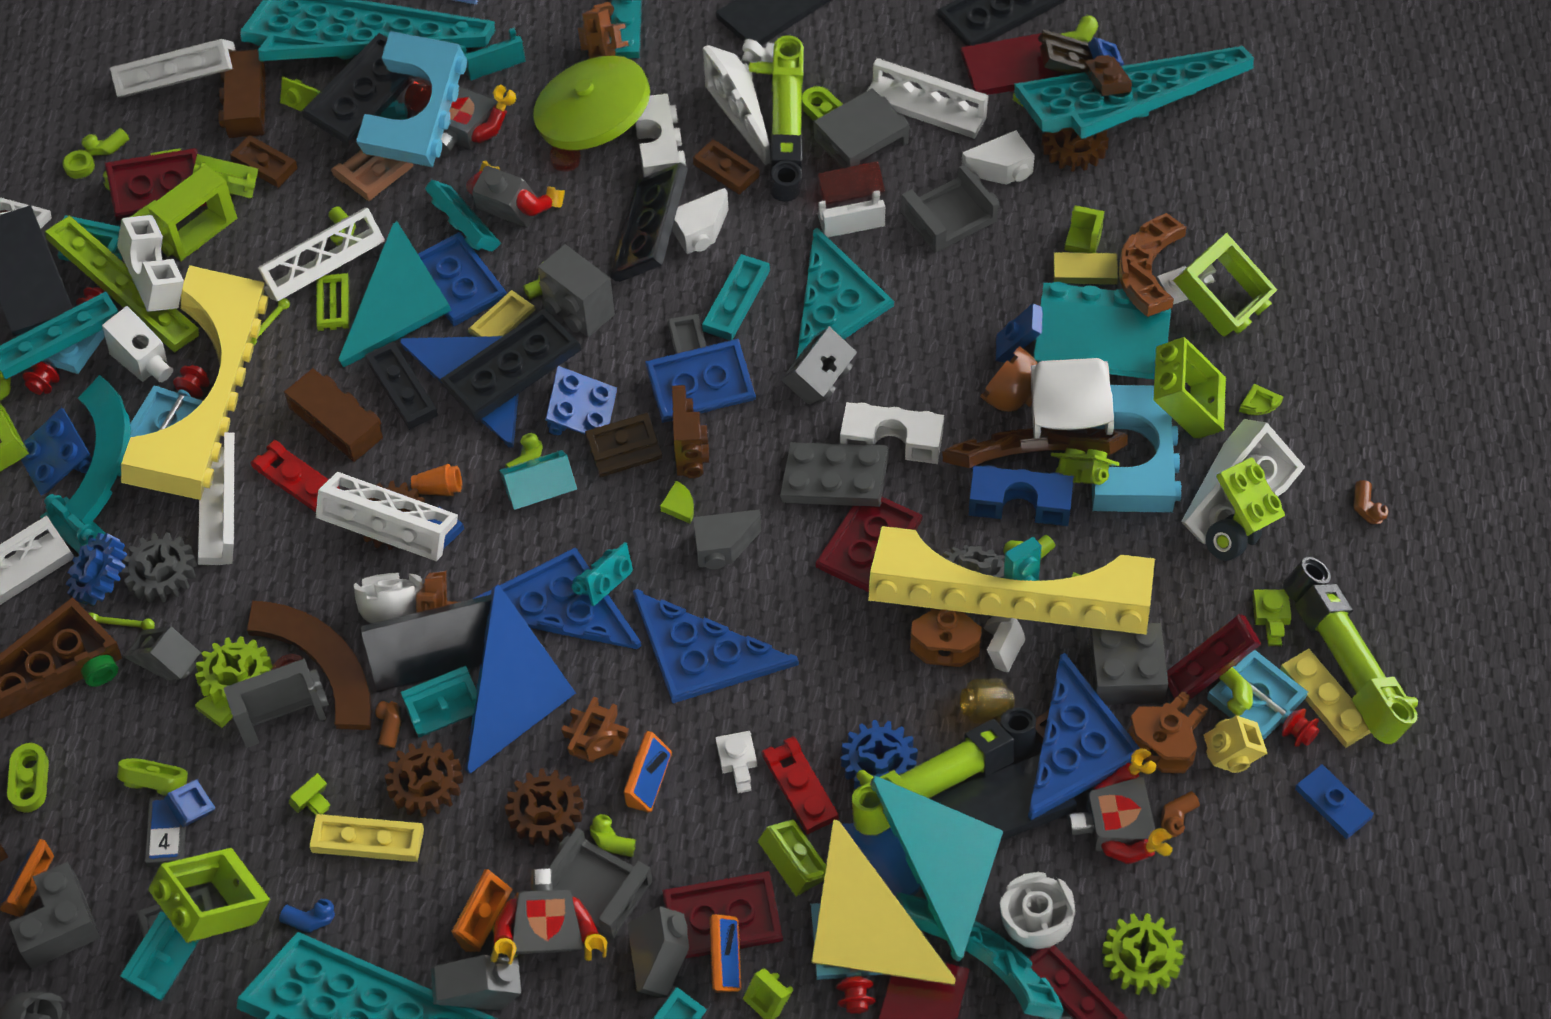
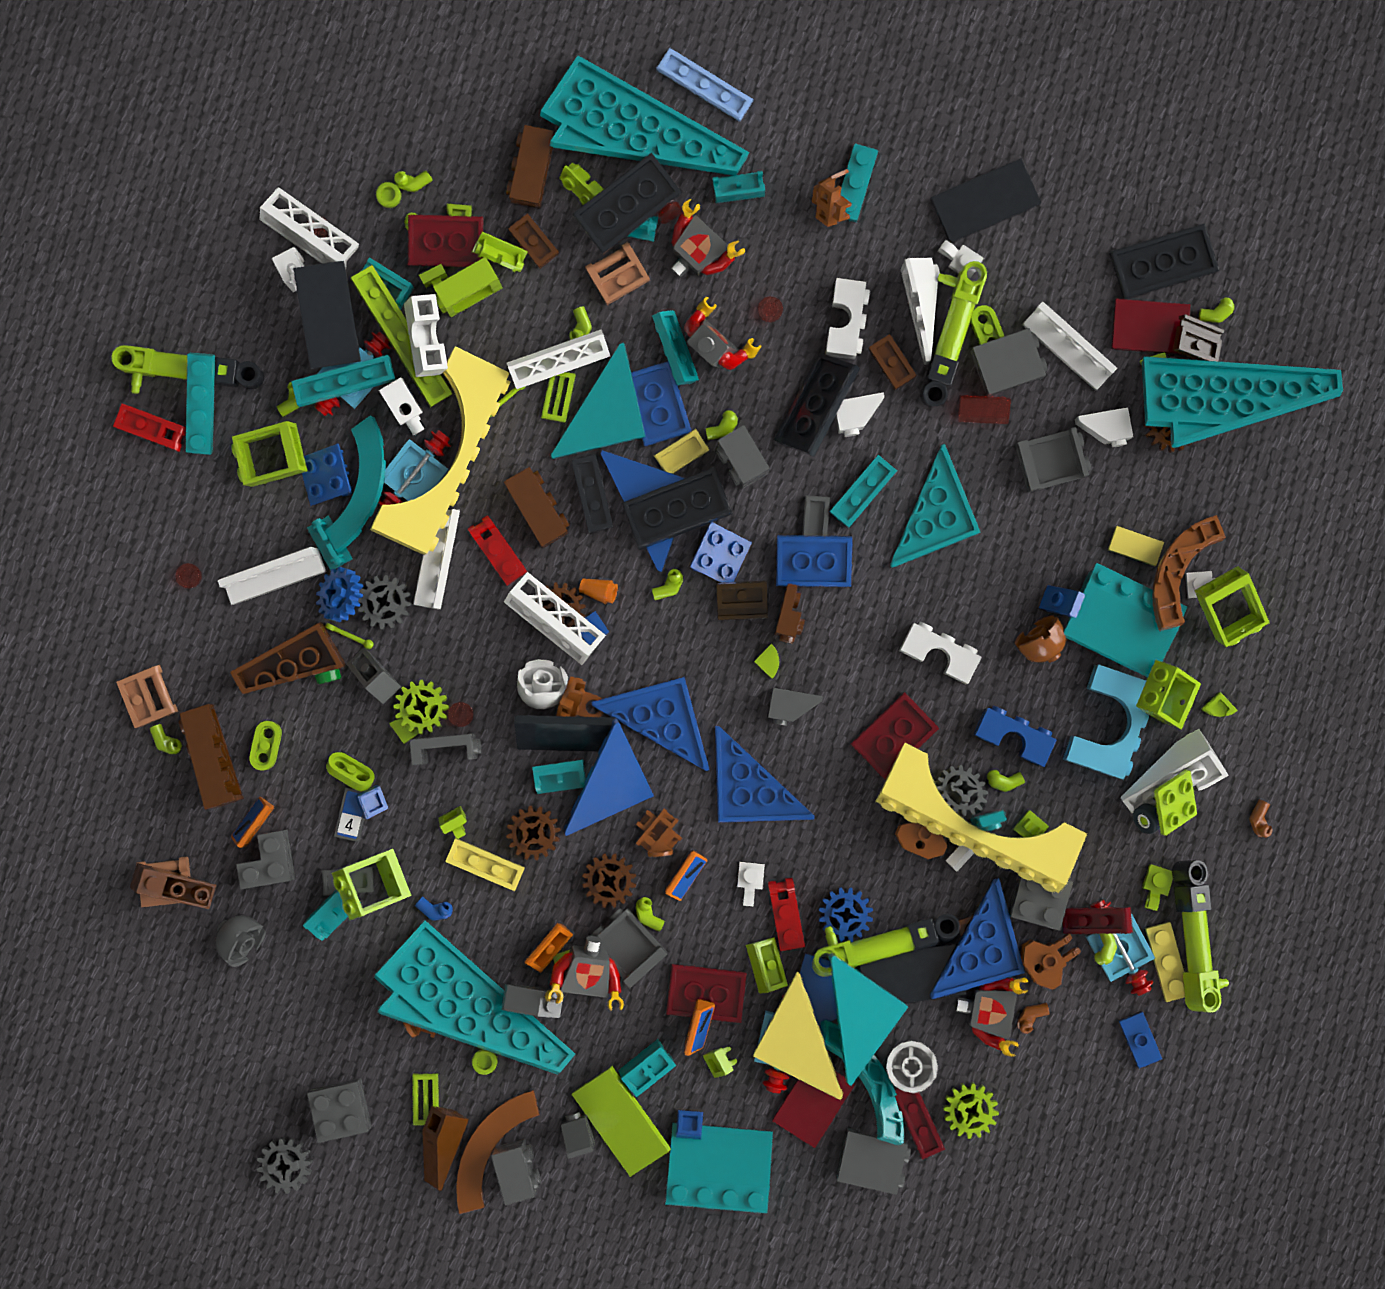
camera: 20 degrees right, 30 degrees up
(172, 67) = (480, 126): white fence -> none
(326, 650) = (490, 708): reddish brown tile -> none
(392, 723) = (521, 781): dark orange arm -> none
(419, 137) = (690, 213): medium azure arch -> none
(538, 479) = (672, 612): teal hinge -> none
(591, 102) = (804, 269): lime dish -> none
(605, 574) = (706, 704): teal hinge -> none
(658, 949) = (656, 1010): dark grey slope -> none
(819, 366) = (905, 580): brick -> none
(834, 474) = (887, 675): dark grey plate -> none
(852, 217) = (974, 440): white hinge -> none
(986, 700) = (933, 894): clear yellow head -> none
(1022, 440) = (1039, 691): reddish brown tile -> none
(1071, 395) = (1077, 683): white piece -> none
(1084, 230) = (1146, 516): lime panel -> none
(1086, 468) = (1062, 725): lime hinge -> none
(1101, 47) = (1228, 344): blue tile -> none
(1108, 75) = (1218, 380): reddish brown plate -> none
(1235, 744) = (1088, 984): light yellow brick -> none

